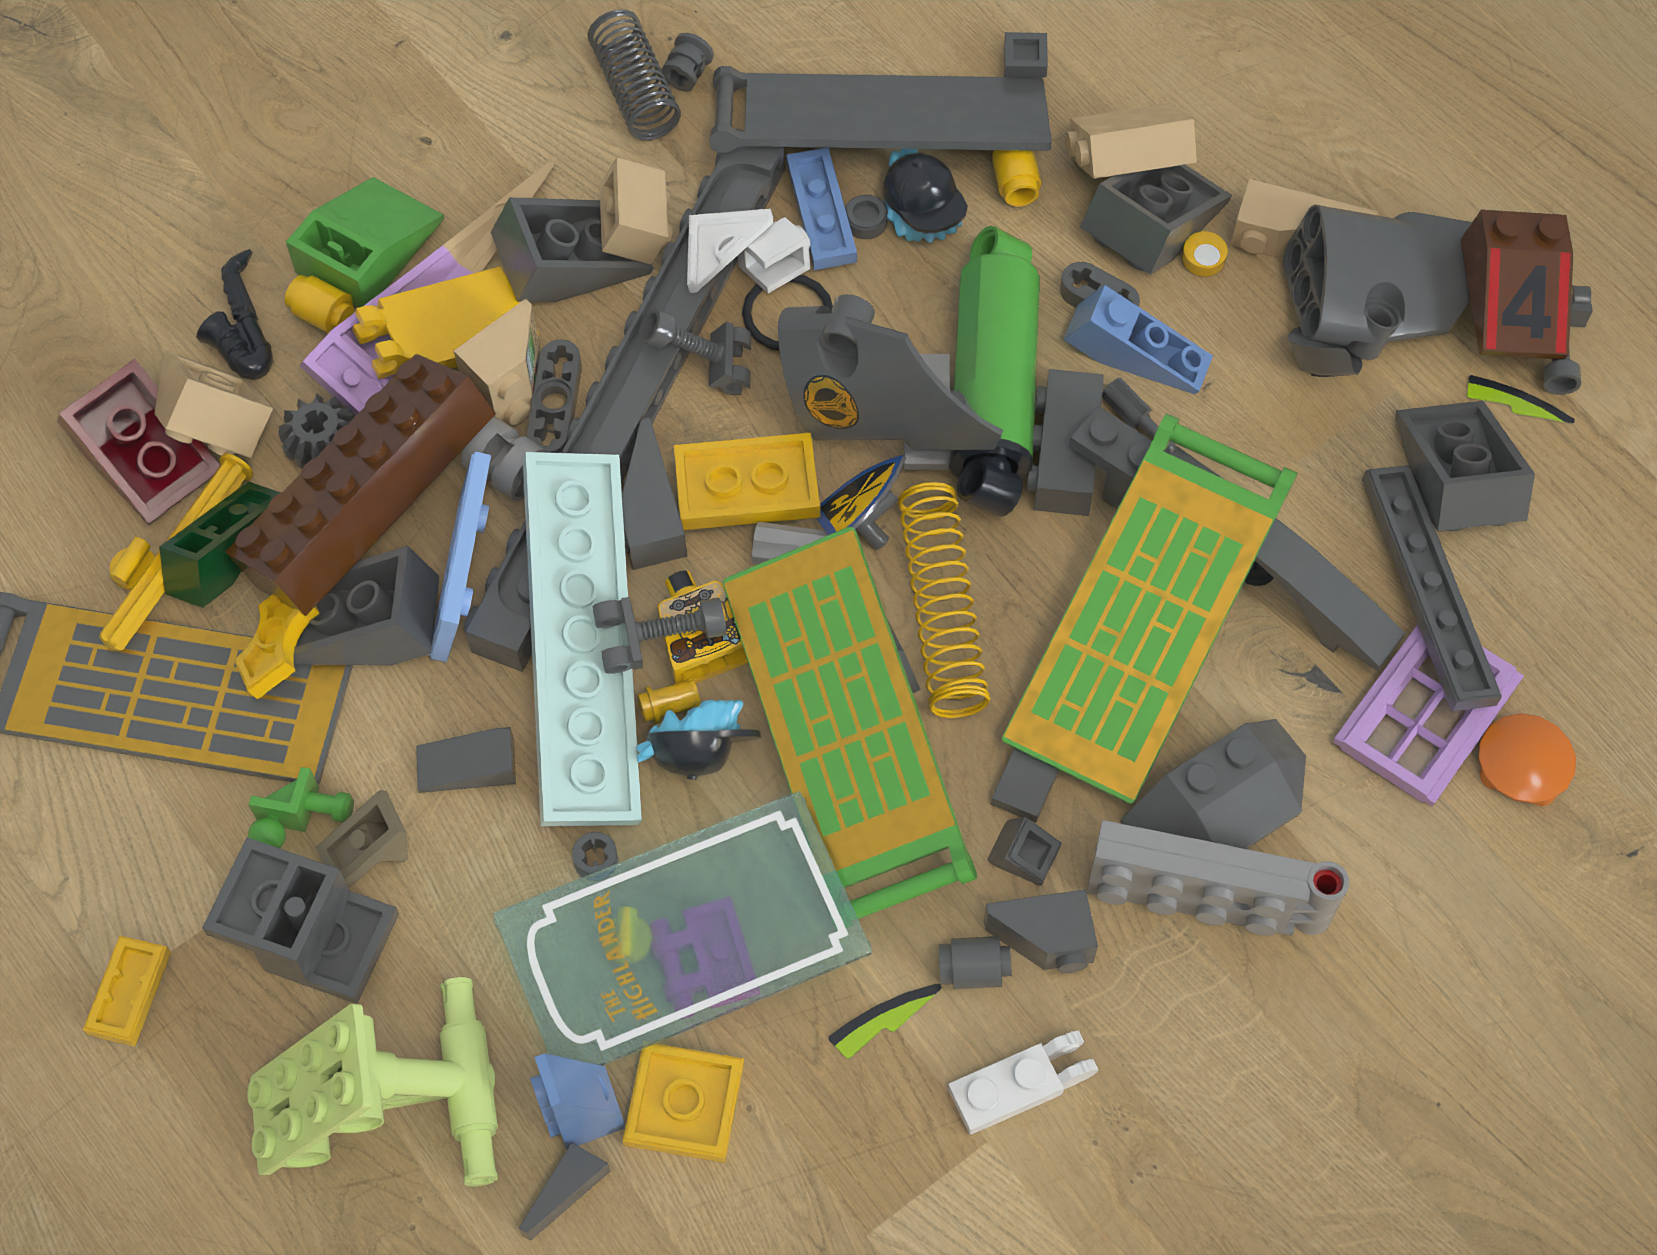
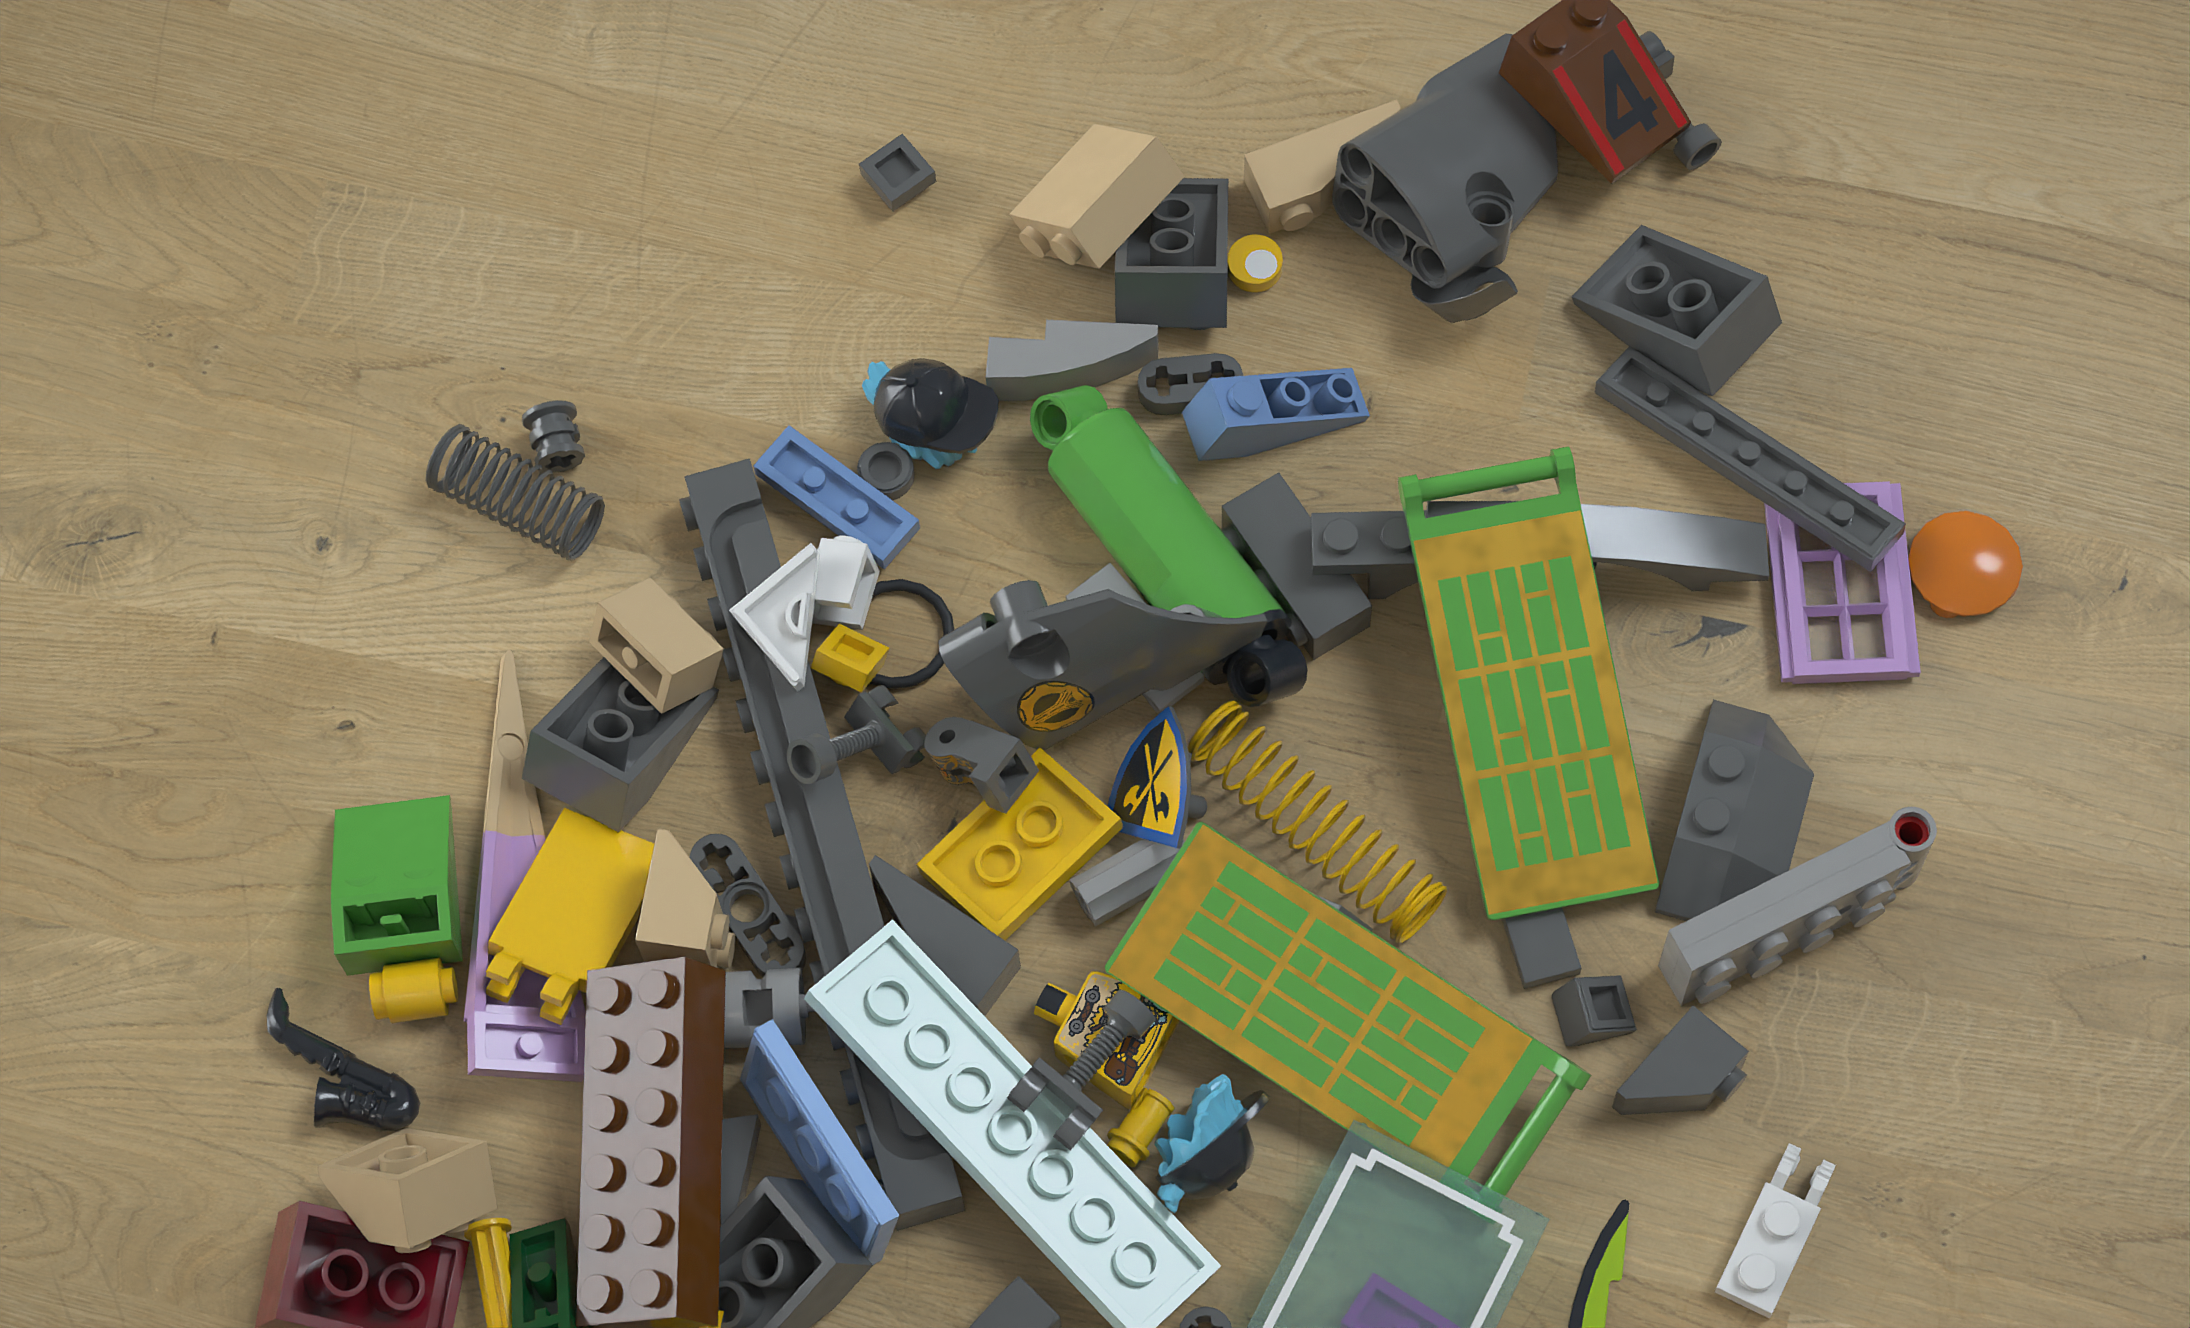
camera: 35 degrees left, 5 degrees up
(312, 428) = (517, 1133): dark grey gear -> none
(416, 529) = (738, 1152): none -> dark grey piece
(741, 299) = (850, 658): none -> yellow plate
(765, 412) = (982, 757): none -> dark grey leg
(882, 111) = (812, 346): dark grey flag -> none
(974, 962) = (1644, 1154): dark grey brick -> none
(1017, 176) = (1000, 308): yellow brick -> none
(1035, 220) = (1068, 357): none -> light grey slope
(1131, 408) = (1329, 484): dark grey axle -> none
(1520, 401) = (1675, 198): sticker -> none

